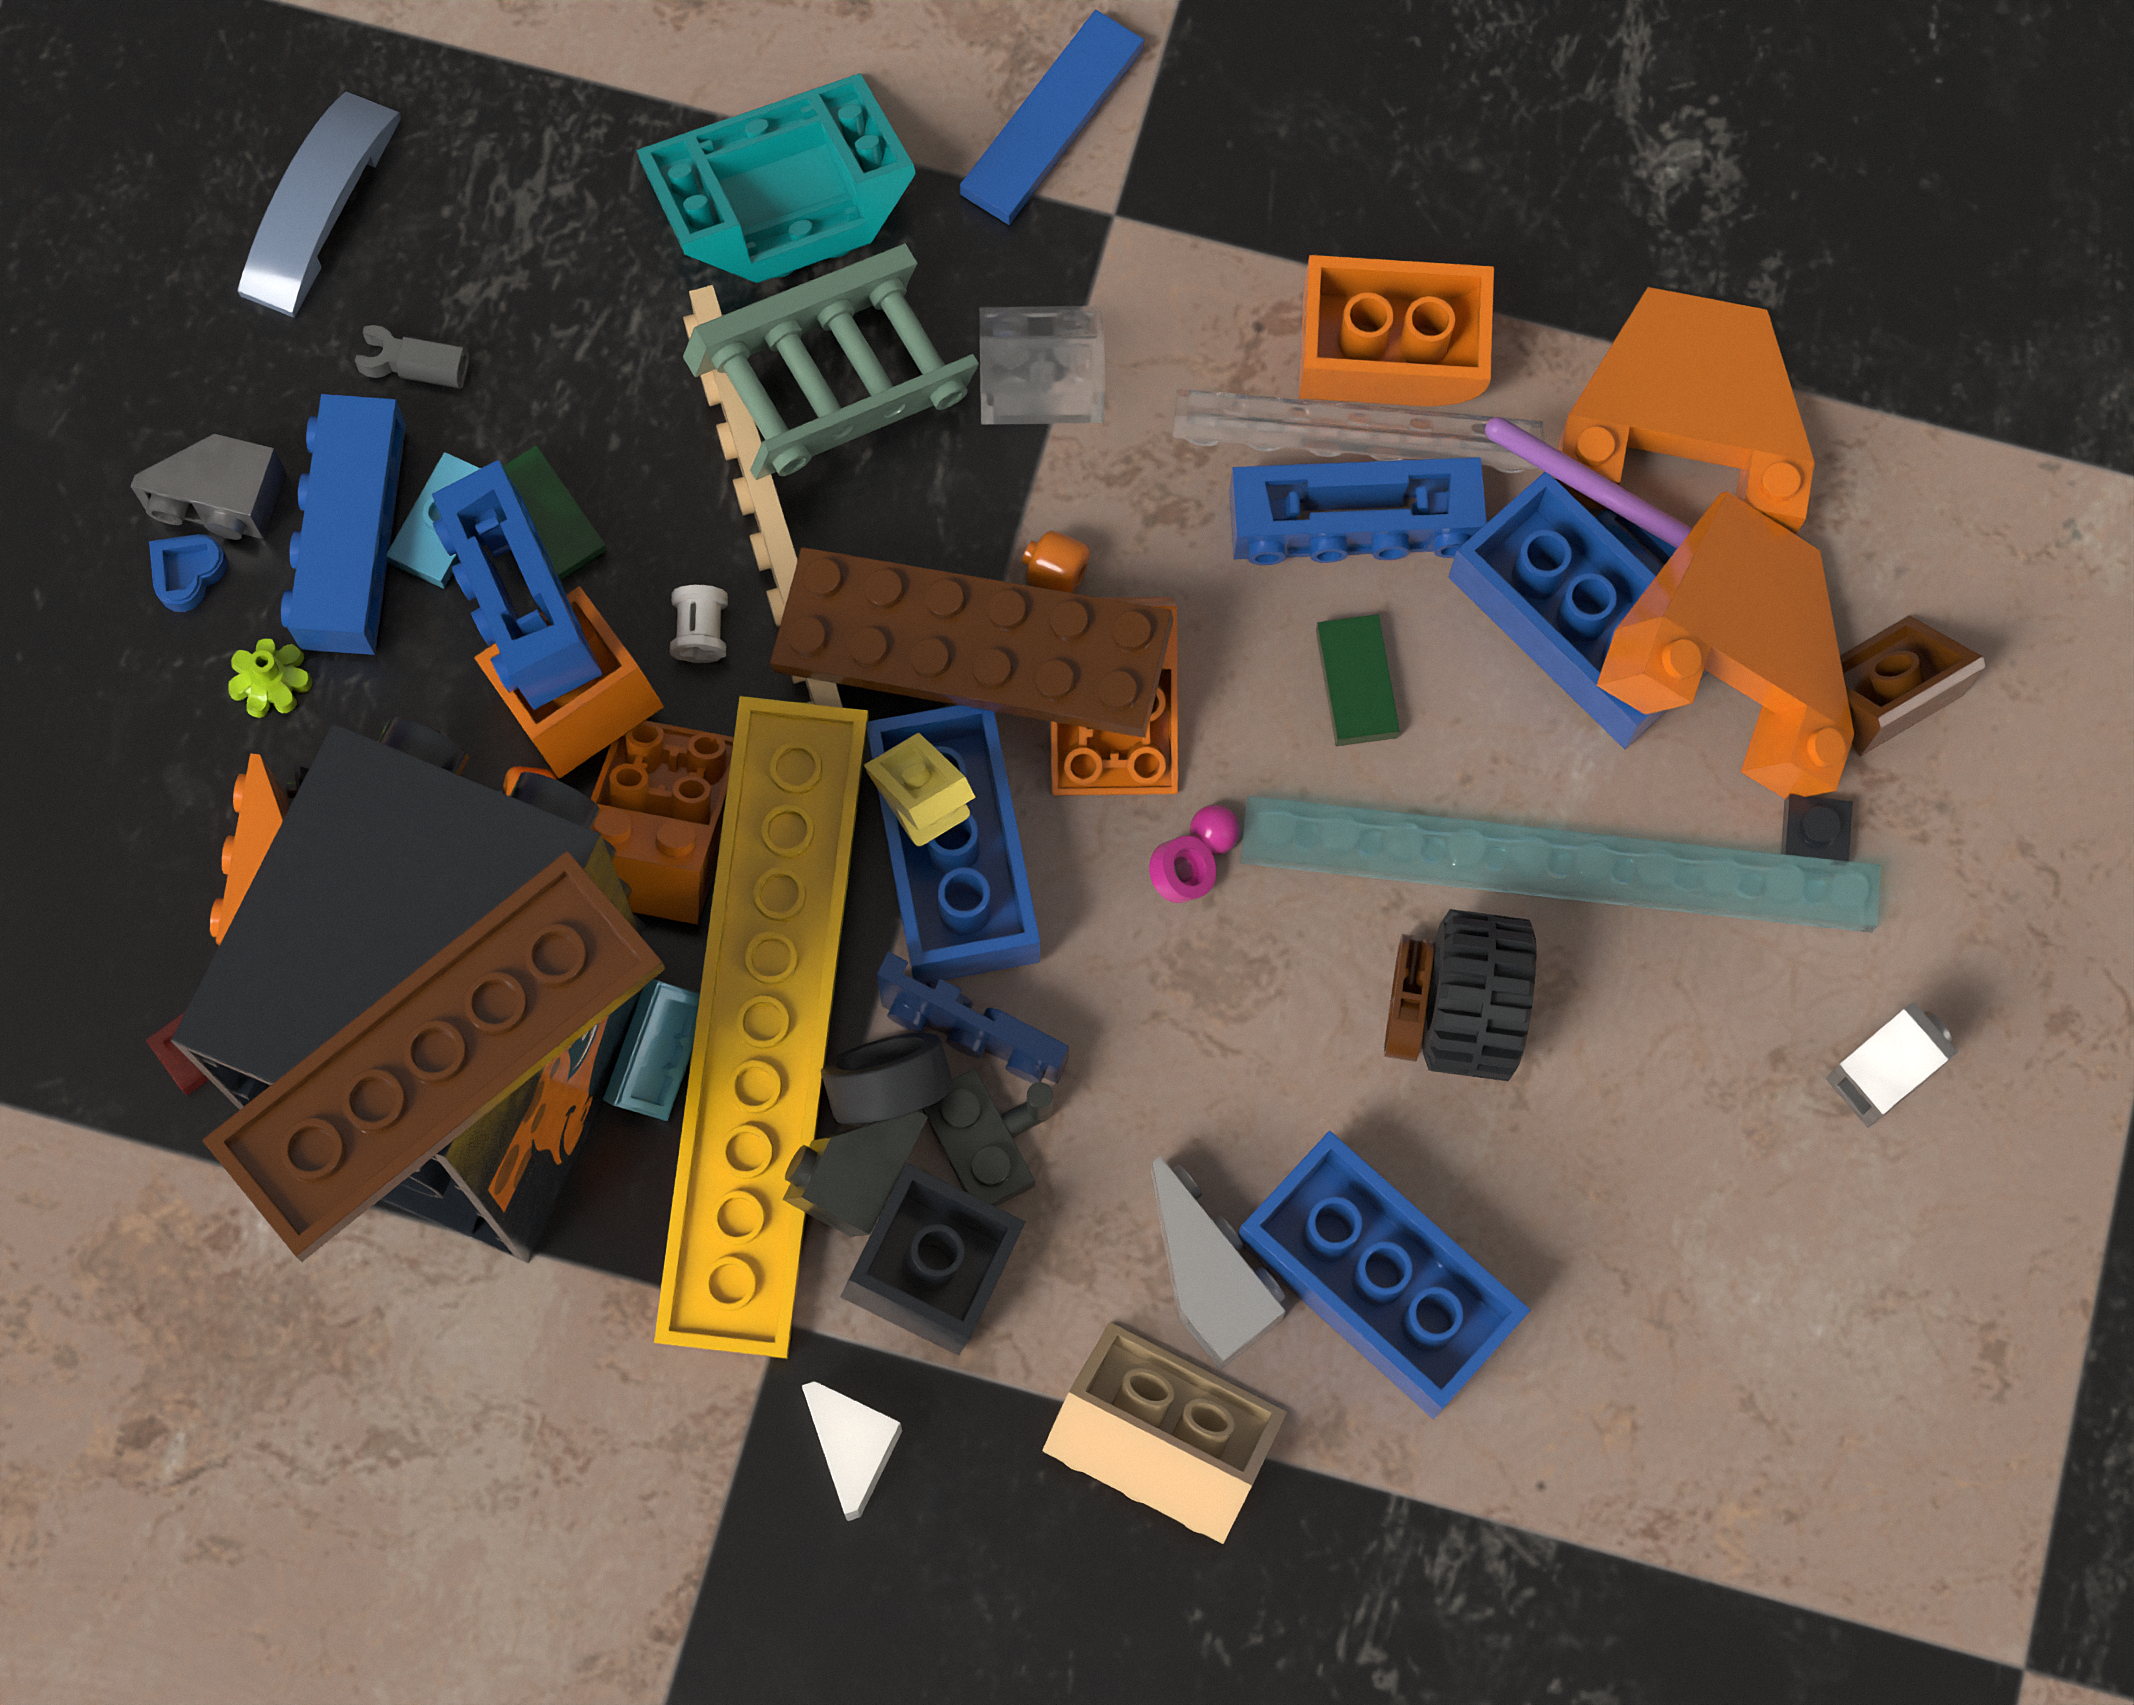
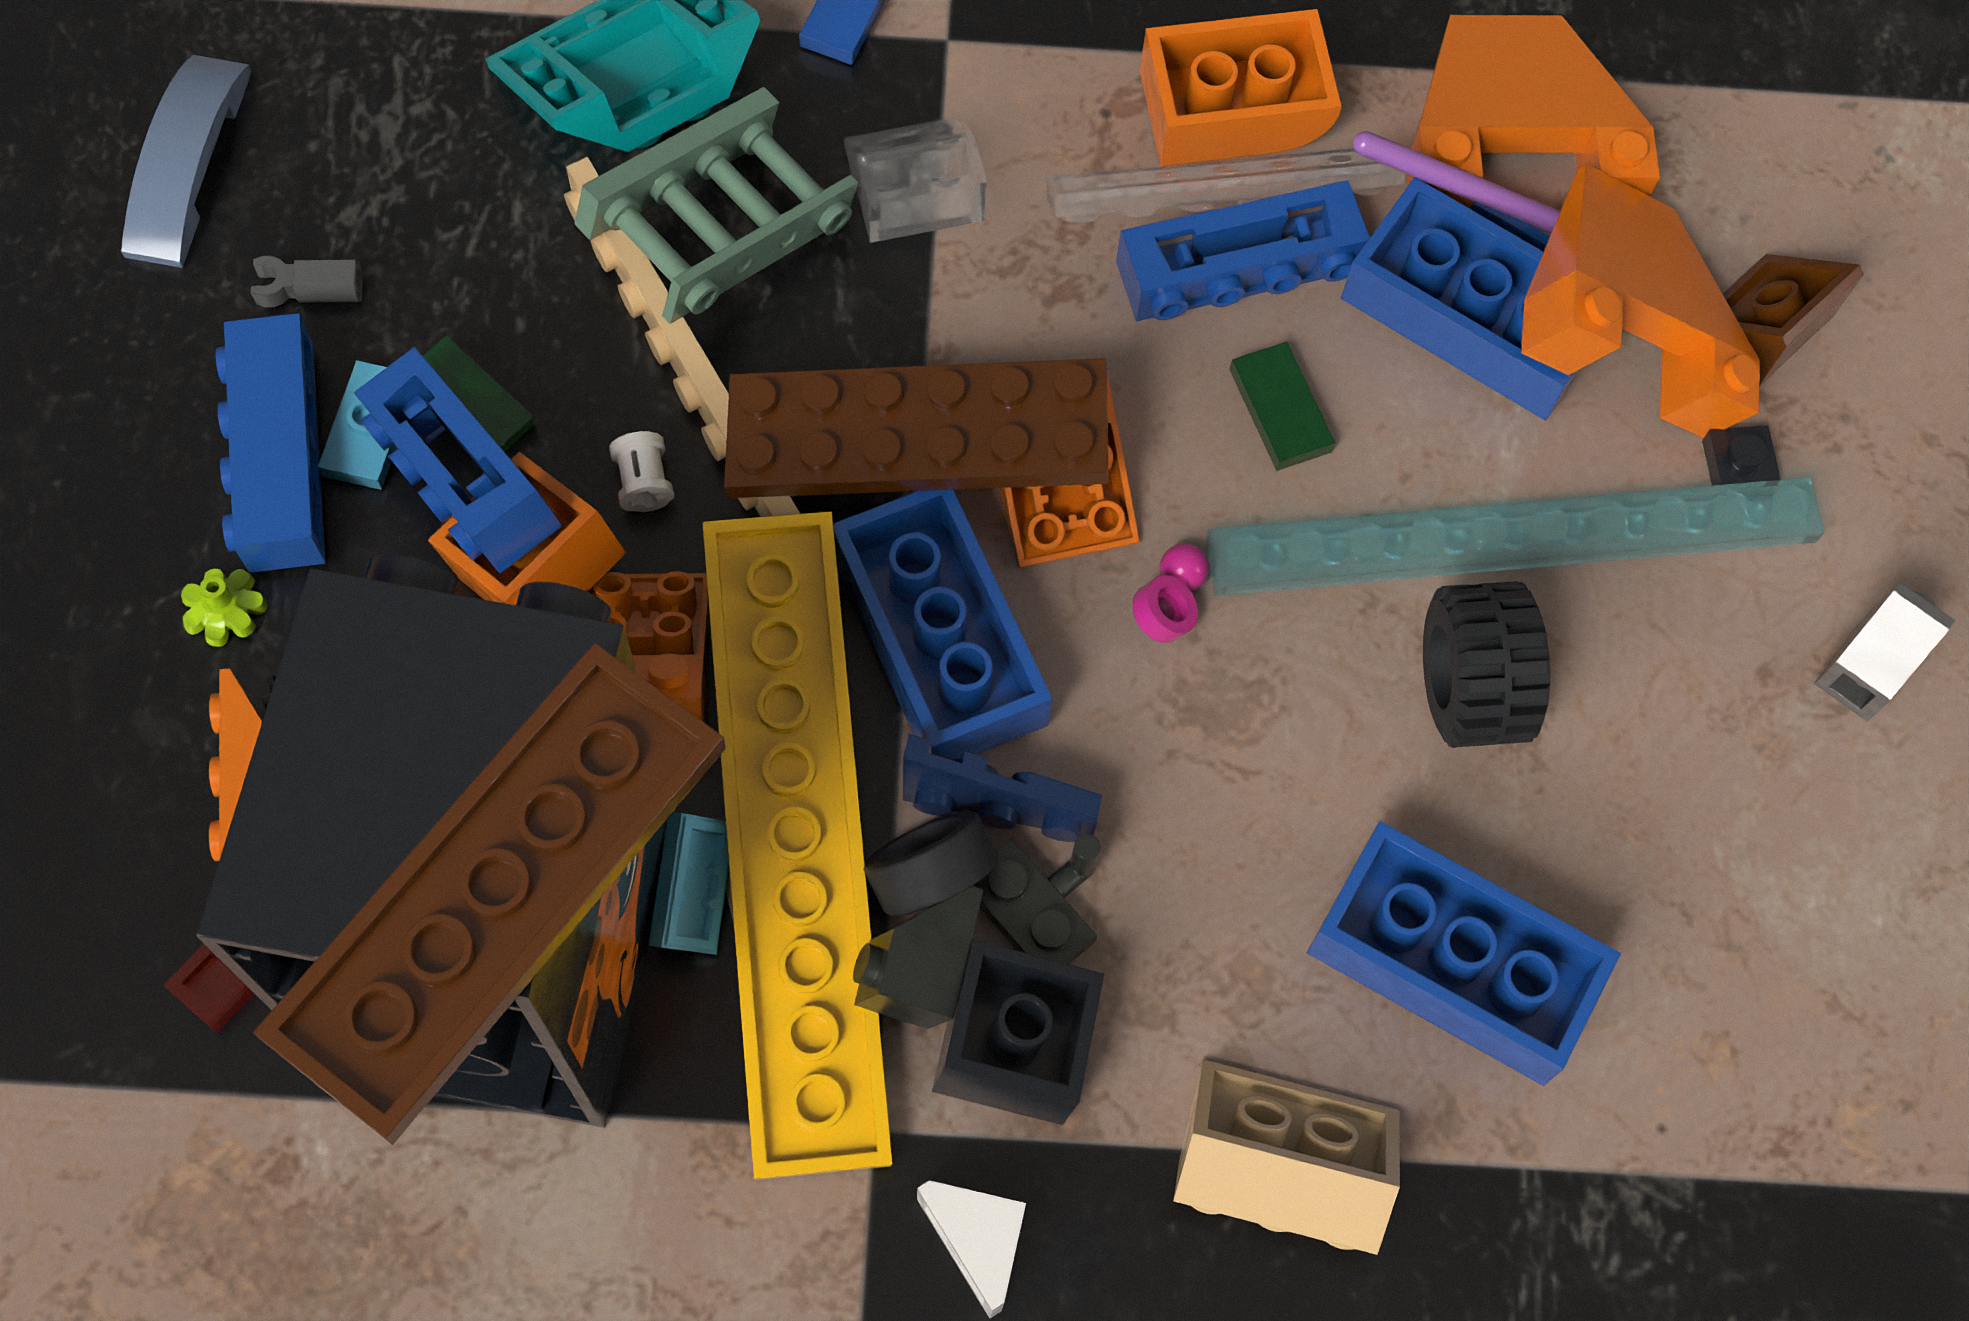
camera: 15 degrees left, 5 degrees down
(185, 568) = (117, 519): blue tile -> none
(214, 483) = (133, 431): flat silver slope -> none
(921, 788) = (904, 572): light yellow slope -> none
(1056, 562) = (973, 344): orange piece -> none
(1212, 1285) = (1295, 997): light grey slope -> none
(1409, 998) = (1412, 686): reddish brown piece -> none

